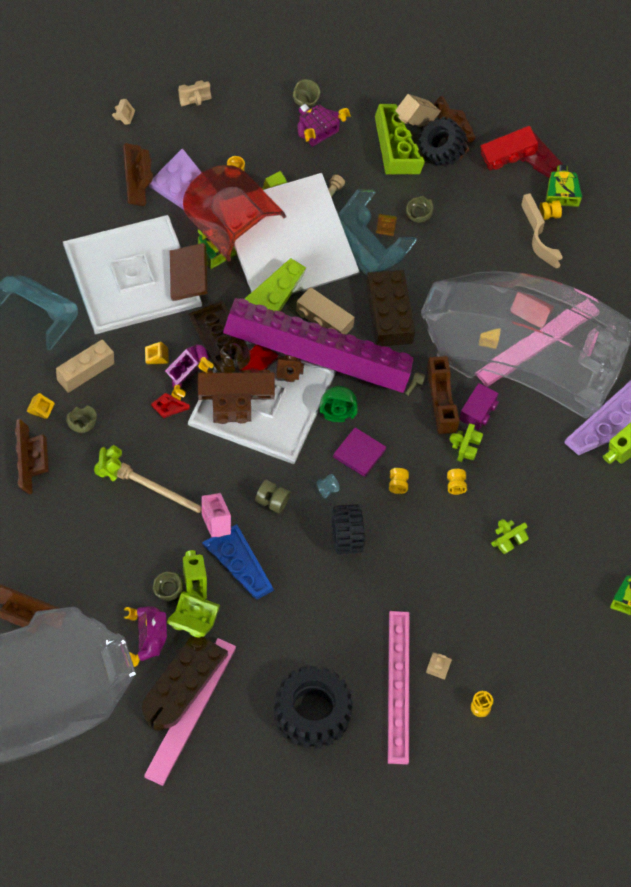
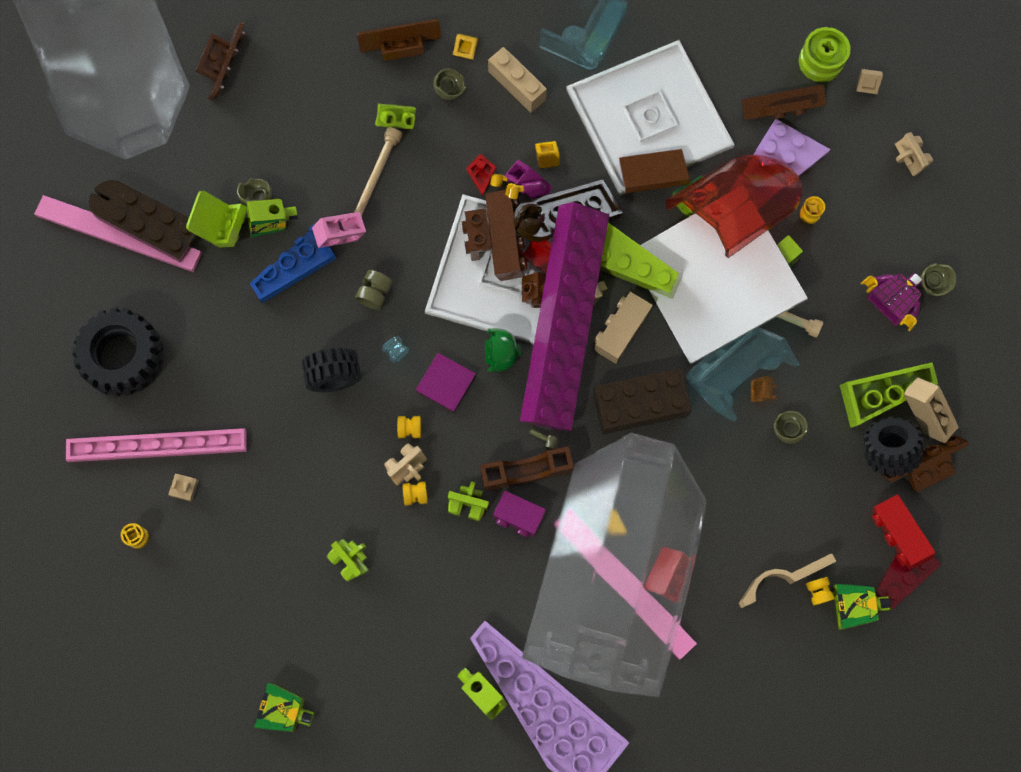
camera: 90 degrees right, 15 degrees up
(97, 137) = (824, 54): none -> lime wheel
(151, 631) = (199, 179): magenta torso -> none
(425, 480) = (408, 466): none -> tan hips

